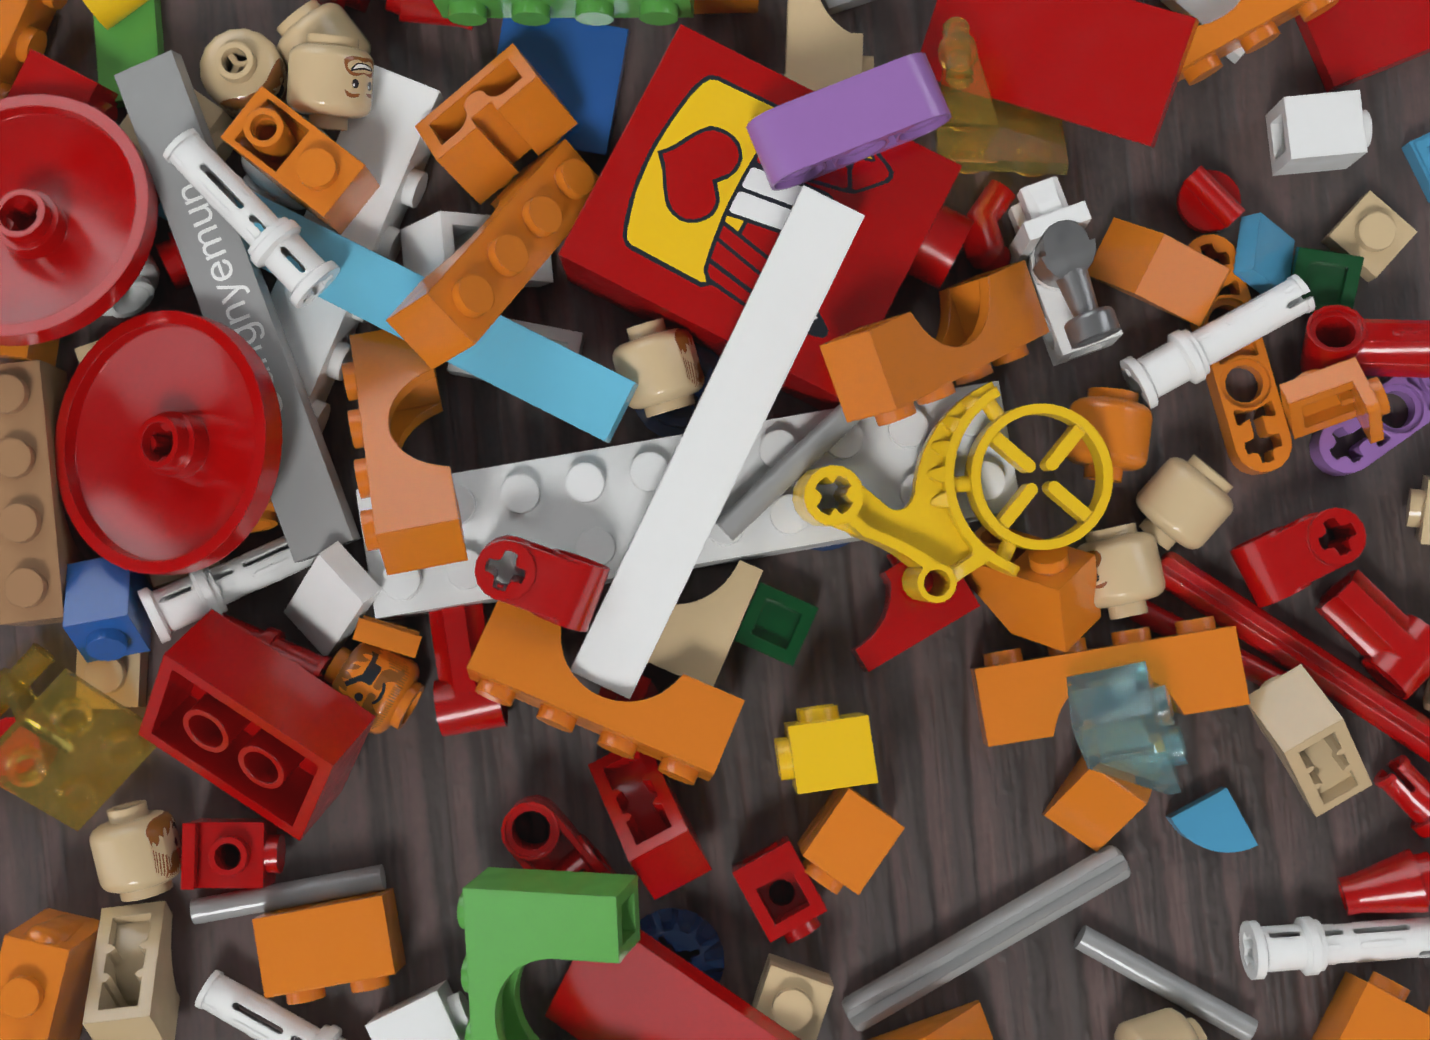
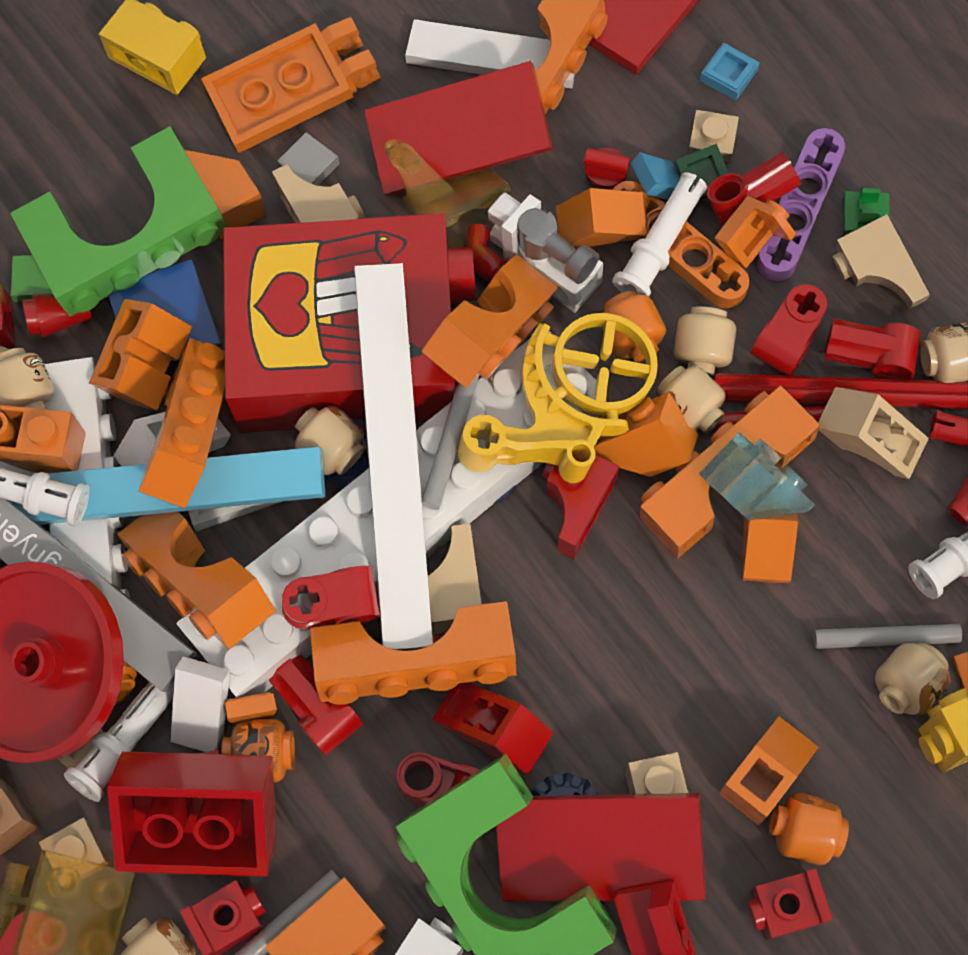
camera: 30 degrees left, 15 degrees down
(105, 610) = (48, 802): blue brick -> none
(776, 624) = (499, 558): dark green plate -> none
(790, 918) = (603, 703): red brick -> none
(826, 750) = (579, 608): yellow brick -> none
(847, 841) = (627, 654): orange brick -> none
(848, 121) = (359, 221): medium lavender beam -> none
(986, 937) = (755, 677): light grey axle -> none
(1213, 823) = (850, 520): dark azure tile -> none
(1317, 132) = (644, 95): white brick -> none

